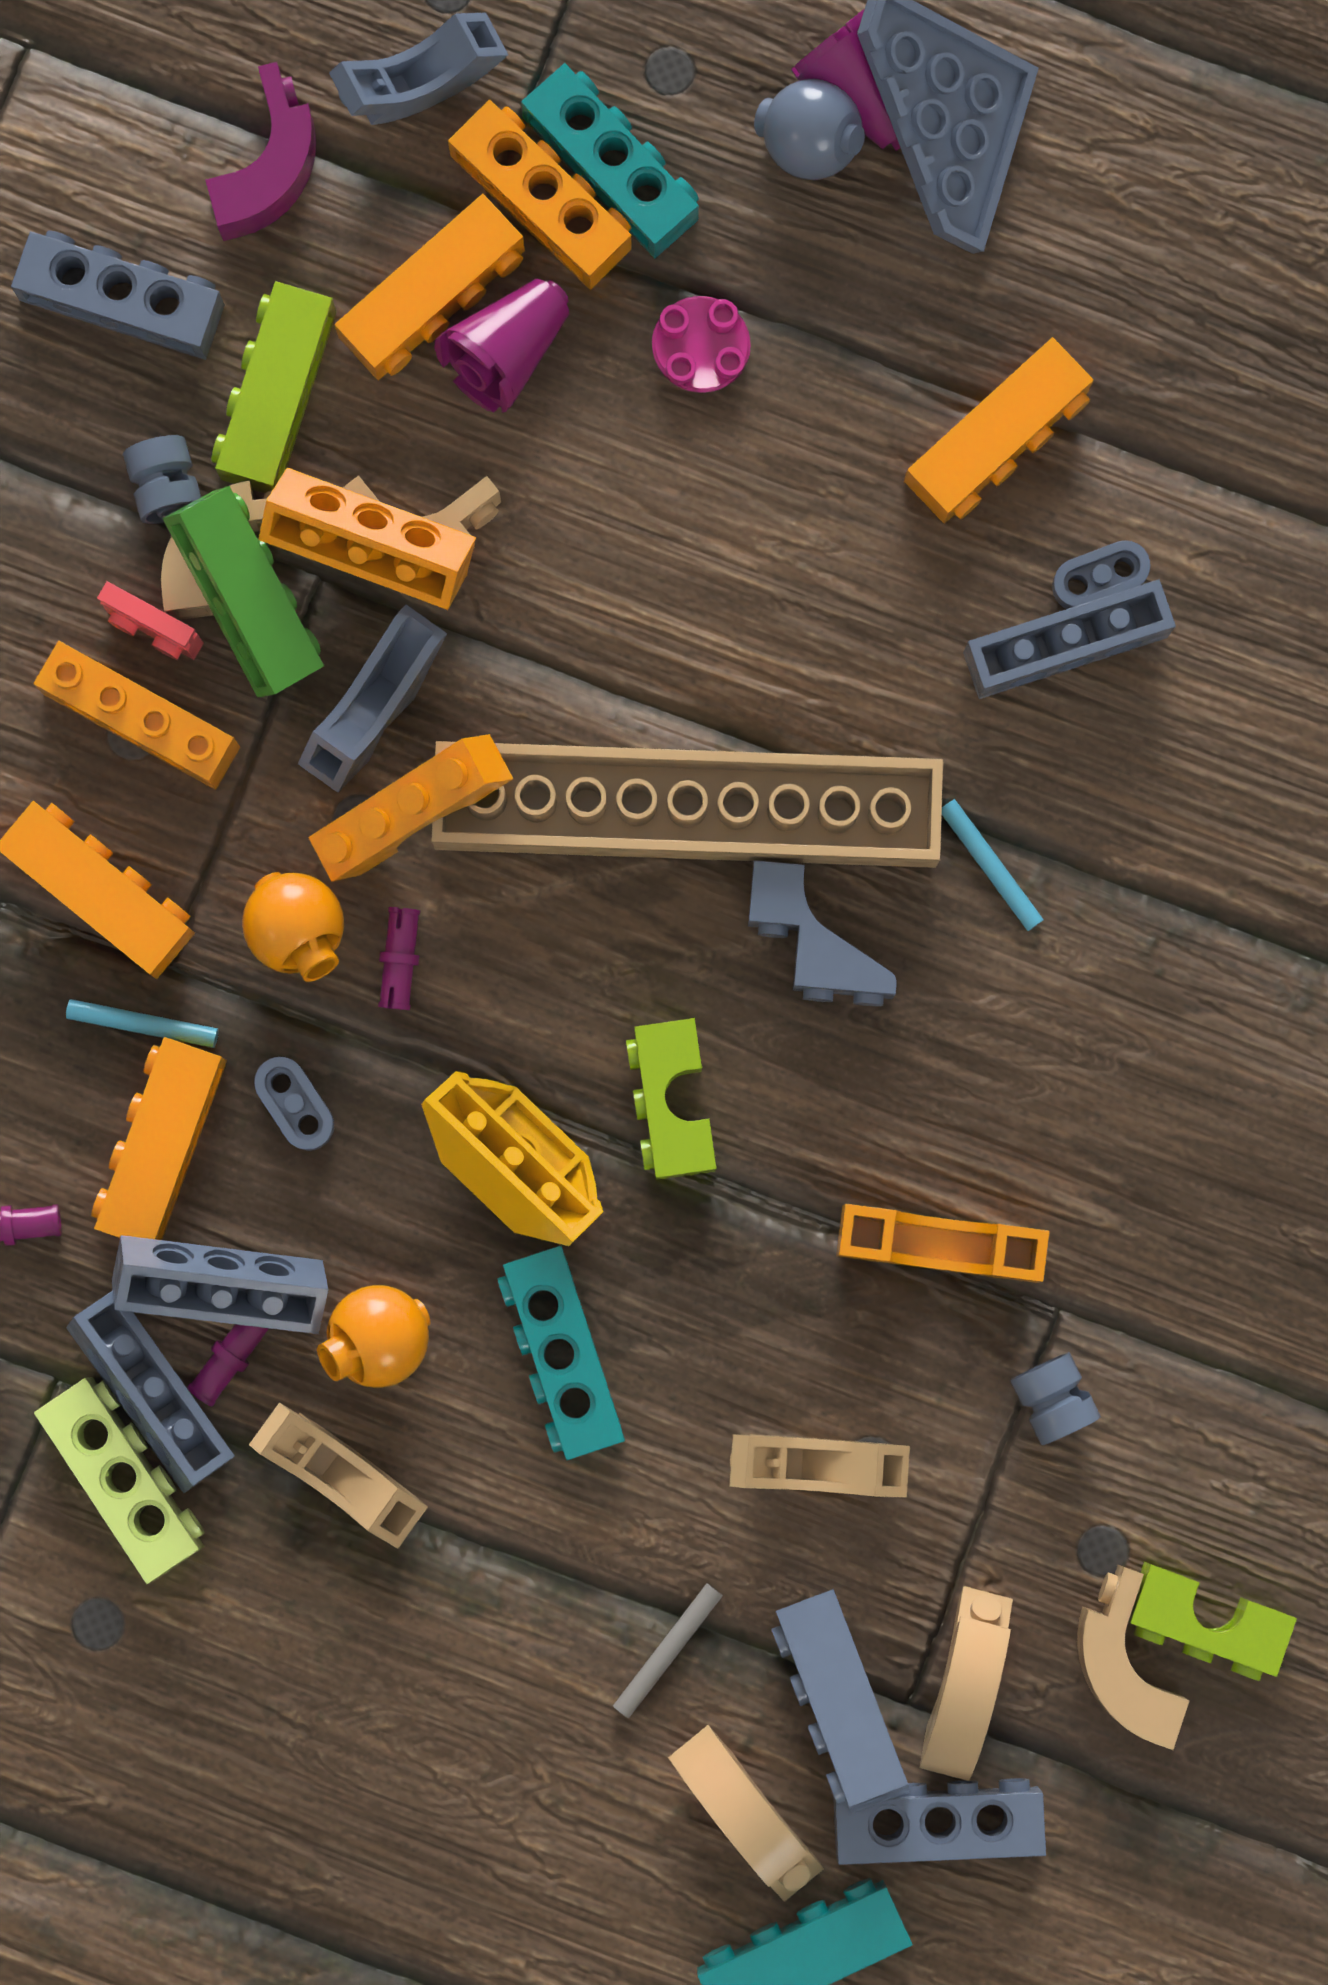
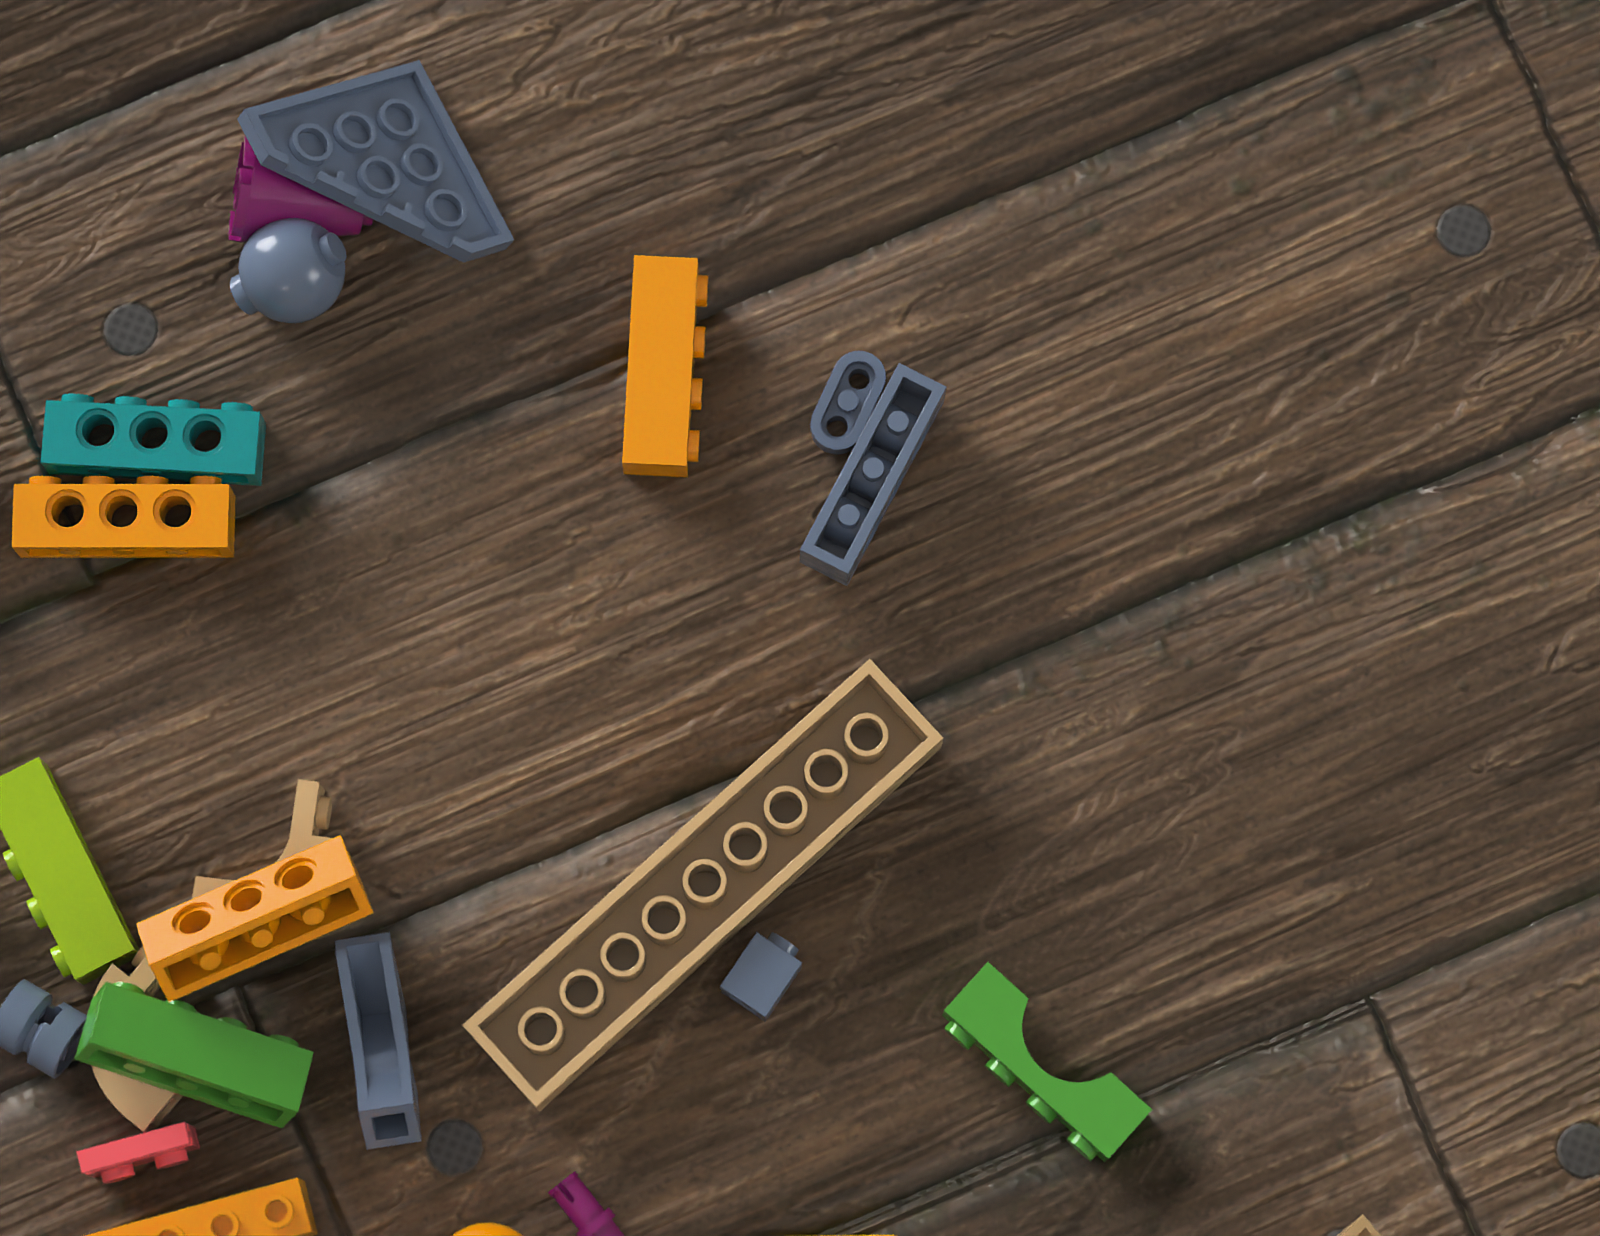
camera: 45 degrees left, 5 degrees down
(427, 793) = (492, 1096): light orange arch -> none
(431, 287) = (109, 675): light orange brick -> none
(504, 343) = (209, 663): magenta cone -> none
(662, 1055) = (874, 1101): lime arch -> none
(668, 901) = (762, 974): none -> sand blue brick
(701, 343) = (363, 517): dark pink dish -> none
(800, 1206) = (1095, 1111): none -> bright green arch
(822, 959) = (924, 902): sand blue arch -> none
(942, 1243) = (1233, 1032): light orange arch -> none
(991, 865) = (982, 704): medium azure bar -> none
(1055, 1398) = (1435, 1067): sand blue wheel -> none

